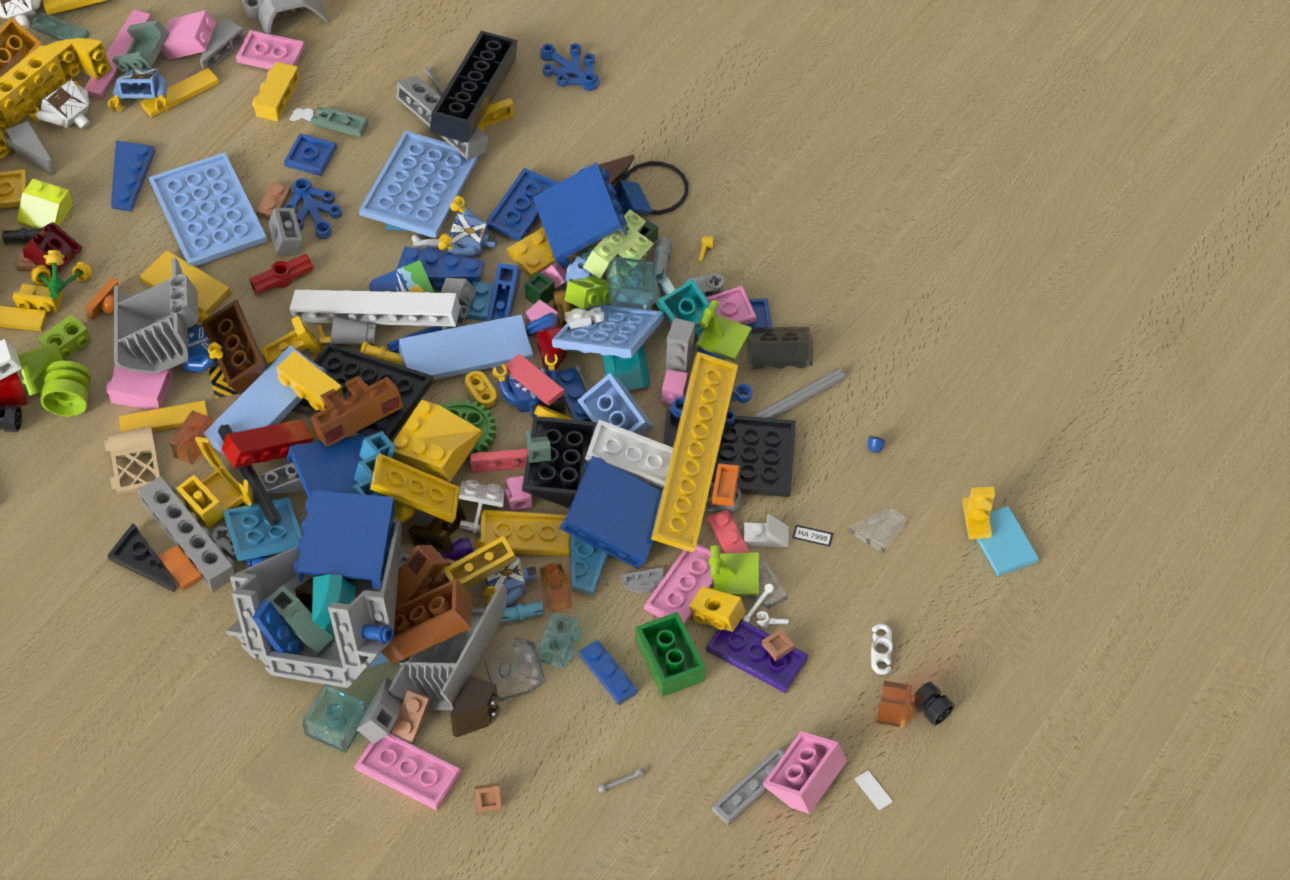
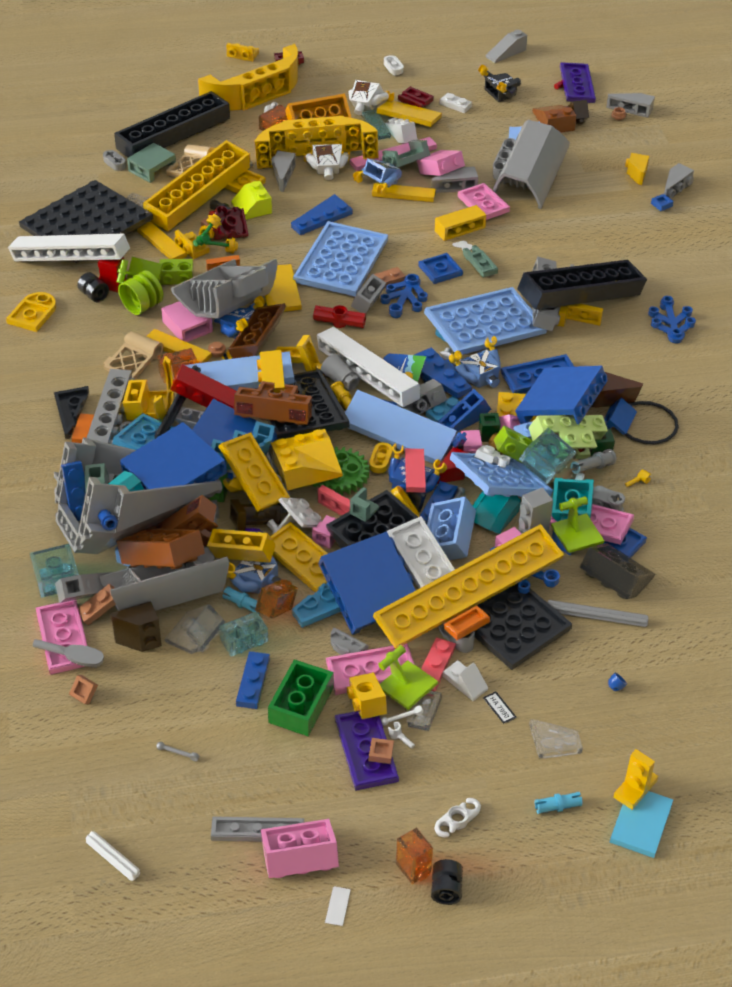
camera: 45 degrees right, 10 degrees down
(101, 20) = (402, 130): none -> white slope
(204, 392) = (217, 349): none -> nougat plate
(445, 773) = (75, 653): none -> light grey piece
(936, 576) = (558, 802): none -> medium azure pin

